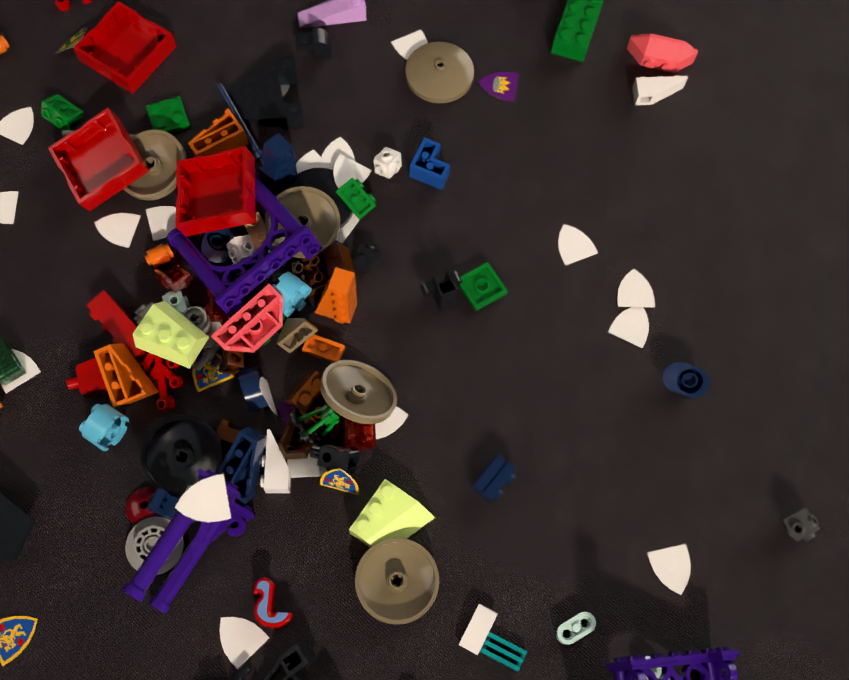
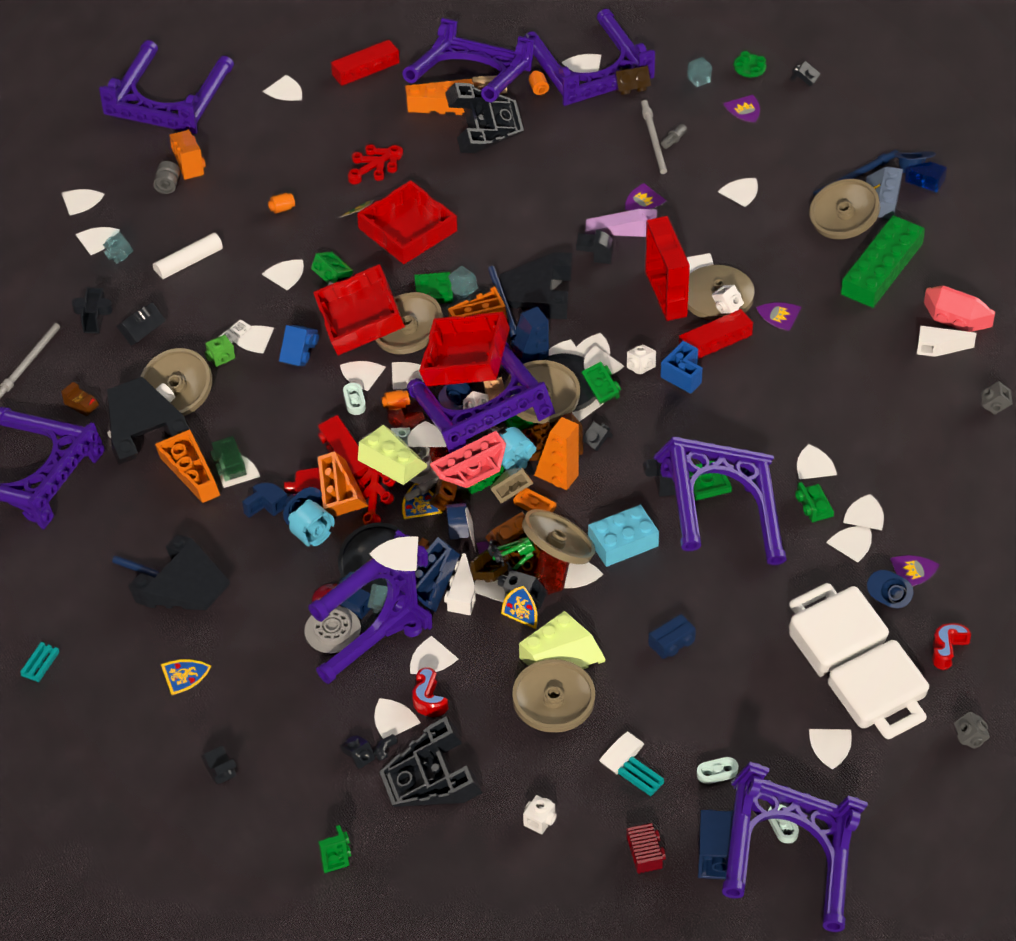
camera: 20 degrees right, 20 degrees down
(44, 209) = (297, 343): none -> blue brick
(49, 399) = (264, 496): none -> dark blue brick
(83, 404) = (294, 501): none -> dark blue piece
(117, 263) = (354, 398): none -> light aqua plate
(195, 106) = (463, 282): none -> clear light blue brick
(198, 300) = (425, 436): none -> white sticker
(262, 554) = (431, 655): none -> white sticker
(391, 59) = (667, 268): none -> red tile
(419, 369) = (623, 535): none -> medium azure brick
(452, 119) = (719, 333): none -> red brick
(454, 82) = (727, 299): none -> white brick
(530, 282) = (753, 474): none -> dark purple arch
(587, 290) = (814, 502): none -> green bracket
(691, 481) = (865, 674): none -> white piece
(694, 345) = (914, 568): none -> dark purple sticker
(722, 142) = (996, 397): none -> dark grey brick
(746, 427) = (944, 638): none -> red animal

